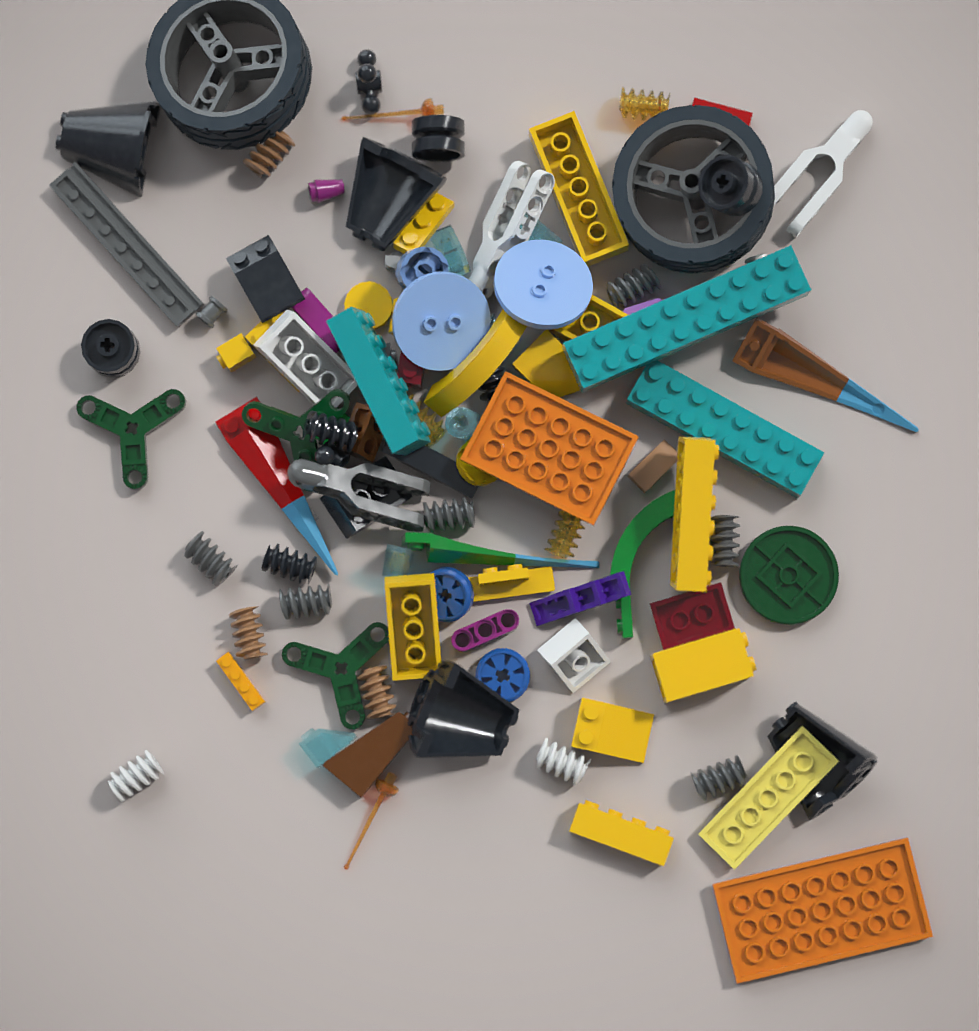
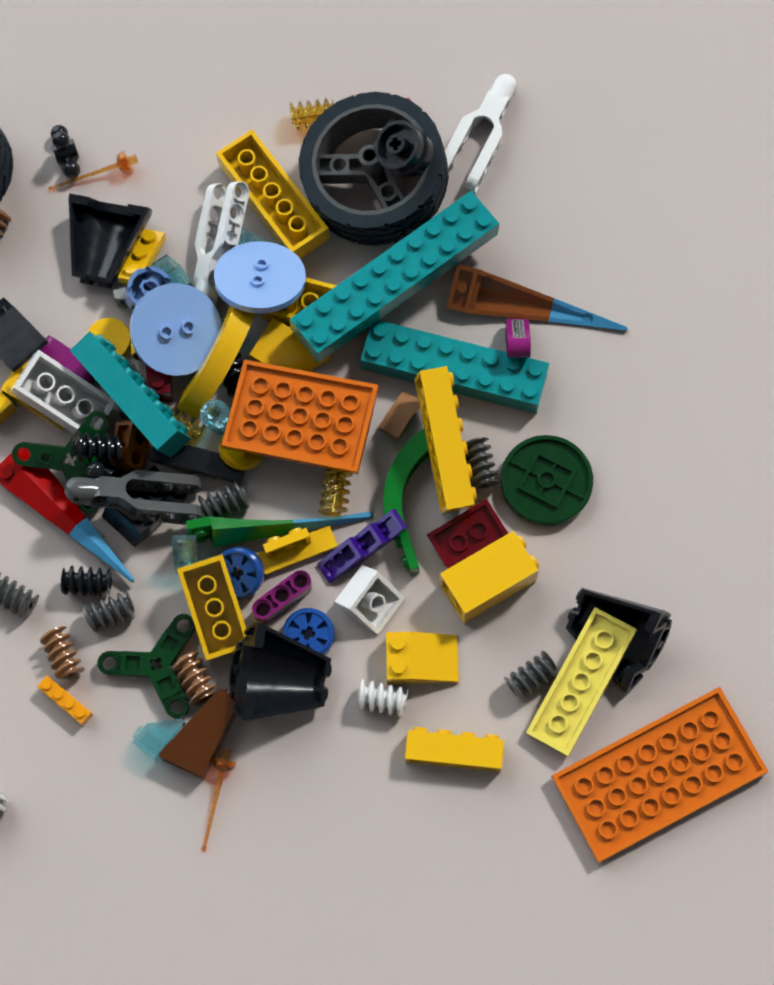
camera: 20 degrees left, 10 degrees down
(325, 189) = (46, 250): magenta cone -> none
(438, 138) = (137, 180): black wheel -> none
(632, 285) = (341, 264): dark grey piece -> none
(798, 416) = (518, 338): none -> magenta beam

